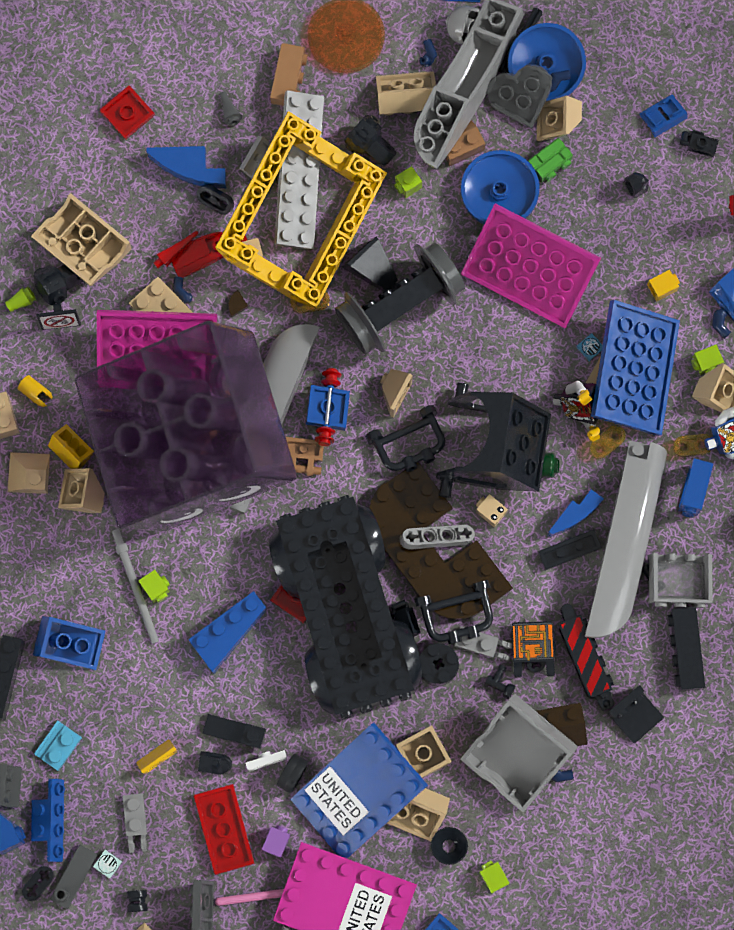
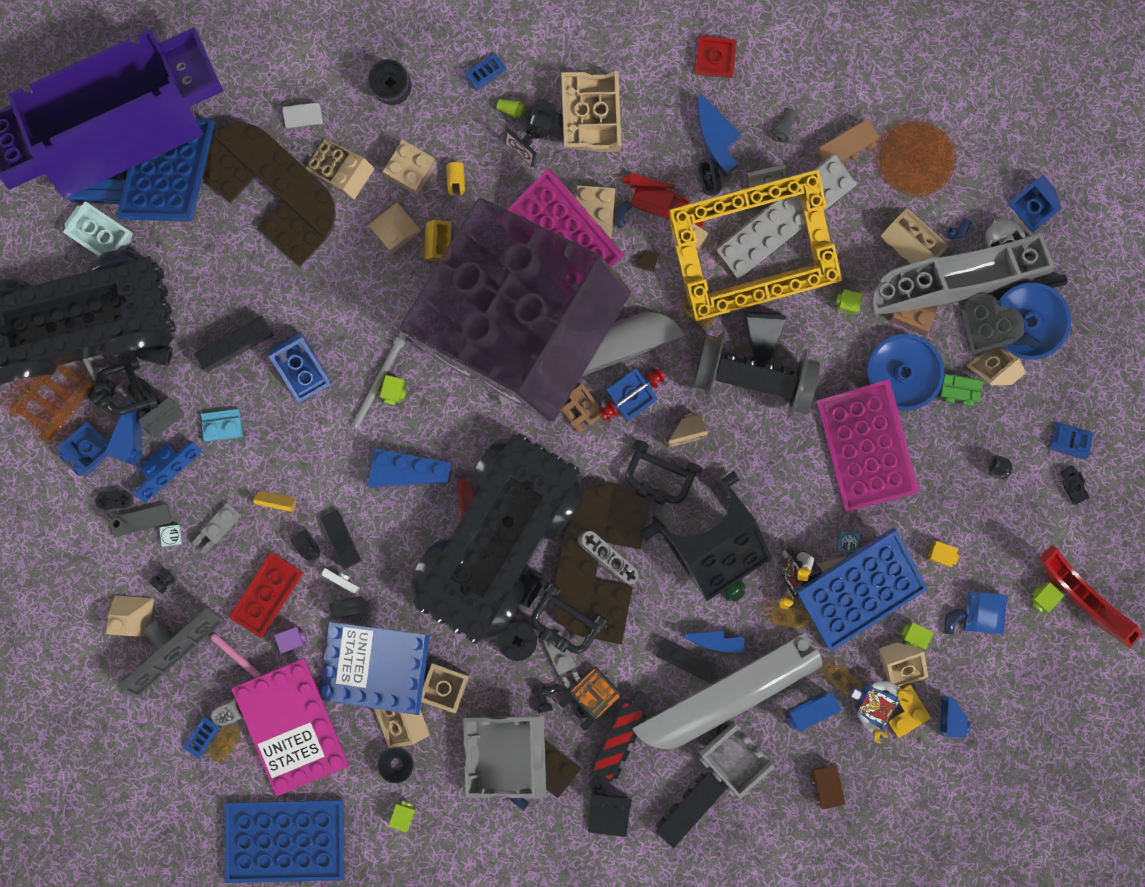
camera: 45 degrees right, 5 degrees up
(81, 491) = (412, 275): tan slope -> none
(367, 138) = (854, 243): black piece -> none
(491, 510) = (663, 577): tan brick -> none

